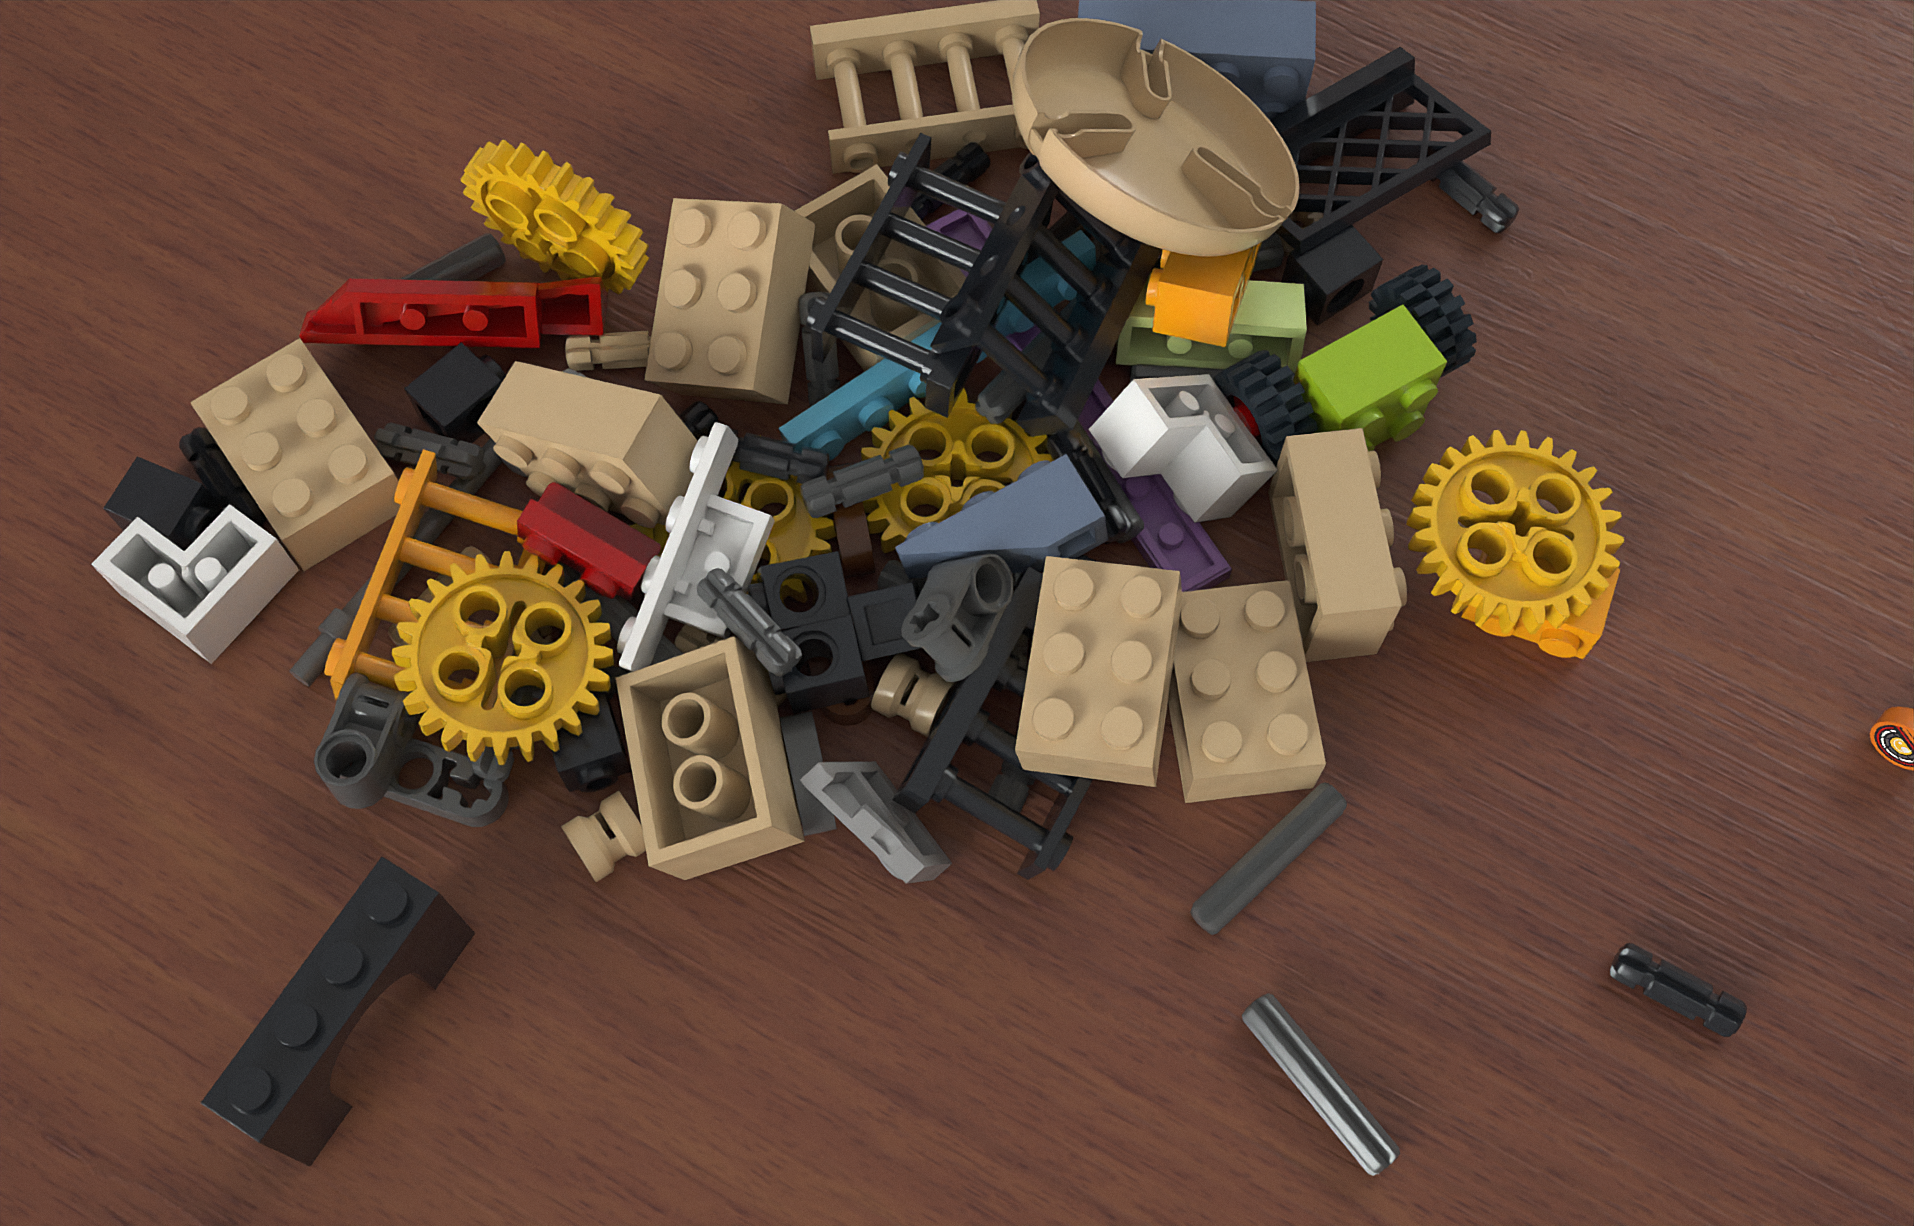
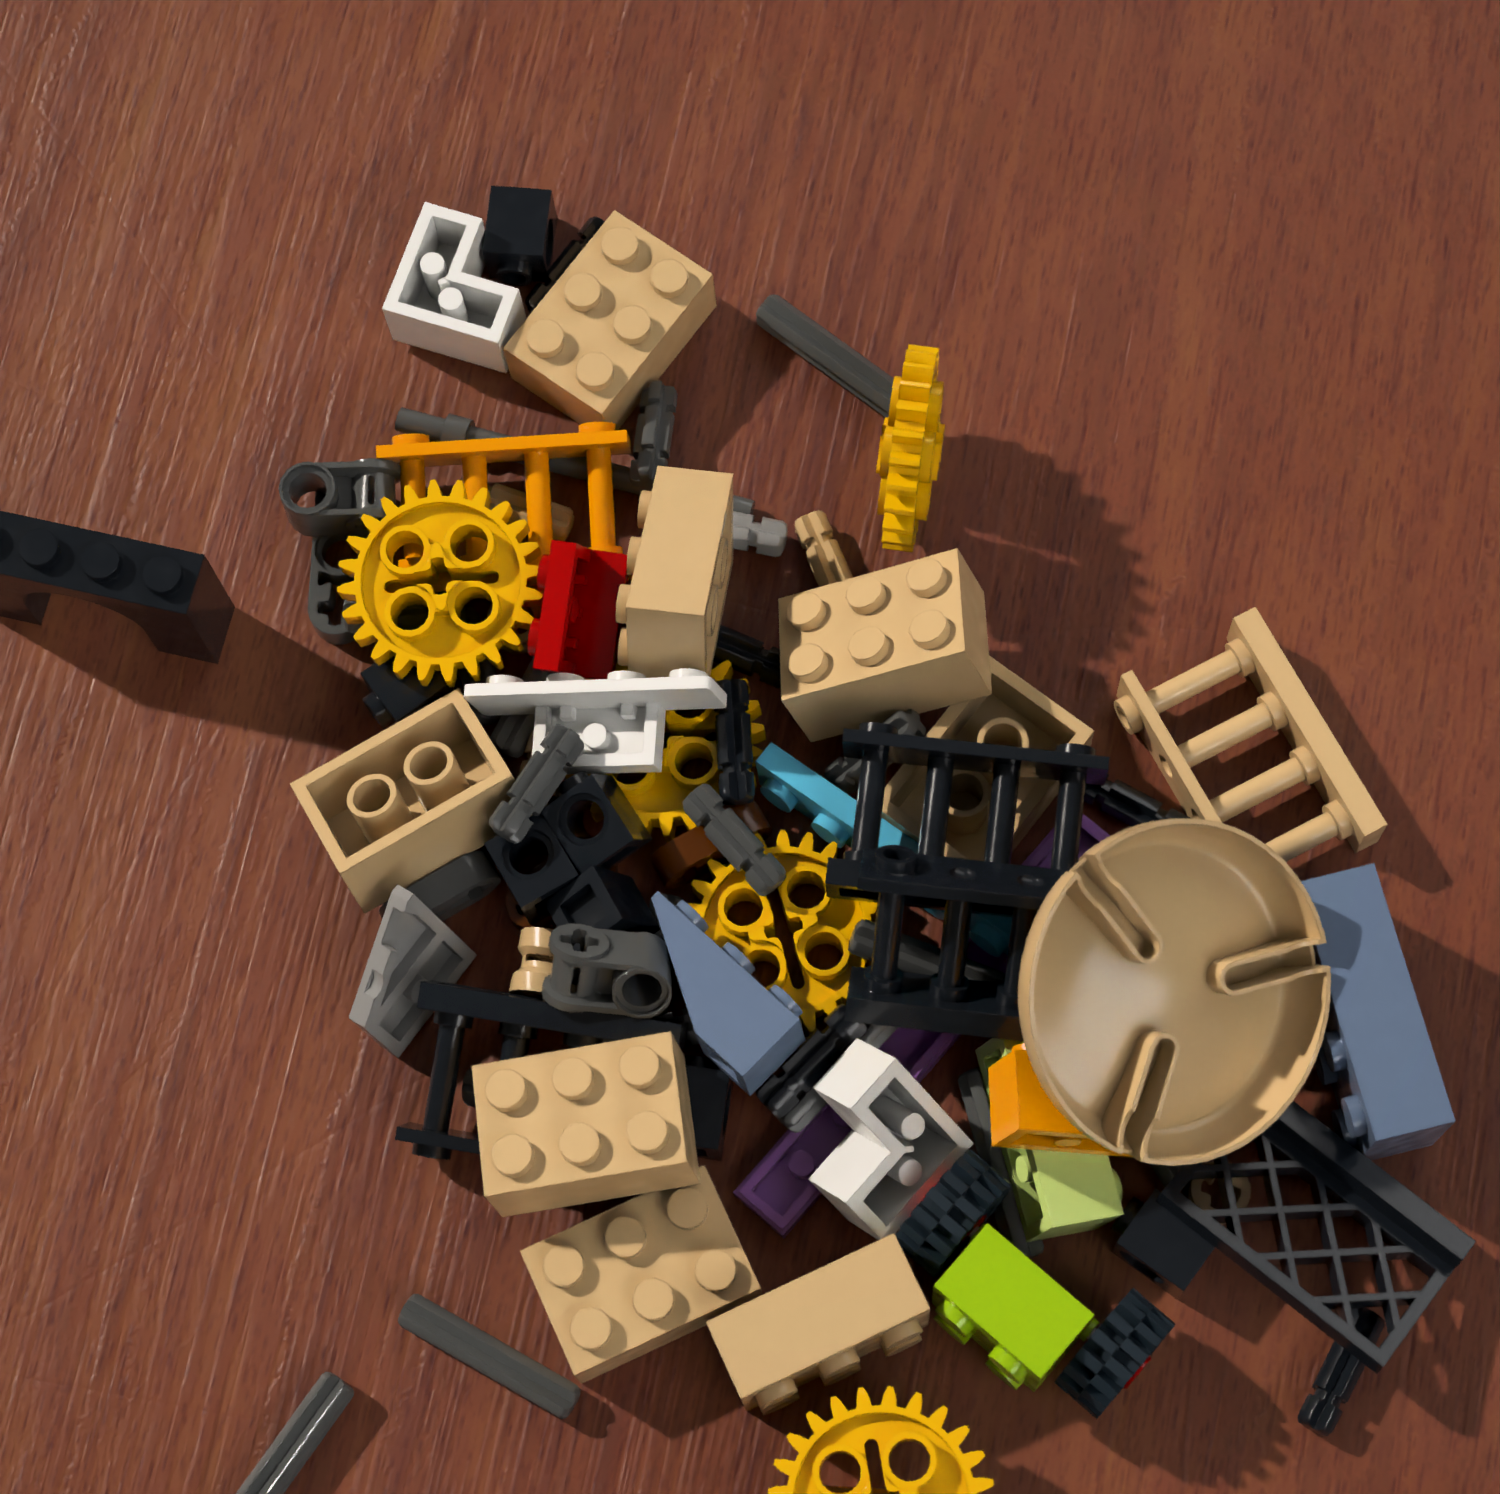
camera: 80 degrees right, 5 degrees up
(456, 393) = (720, 438): black brick -> none
(457, 312) = (794, 410): red wedge -> none
(594, 845) = (320, 734): tan wheel -> none

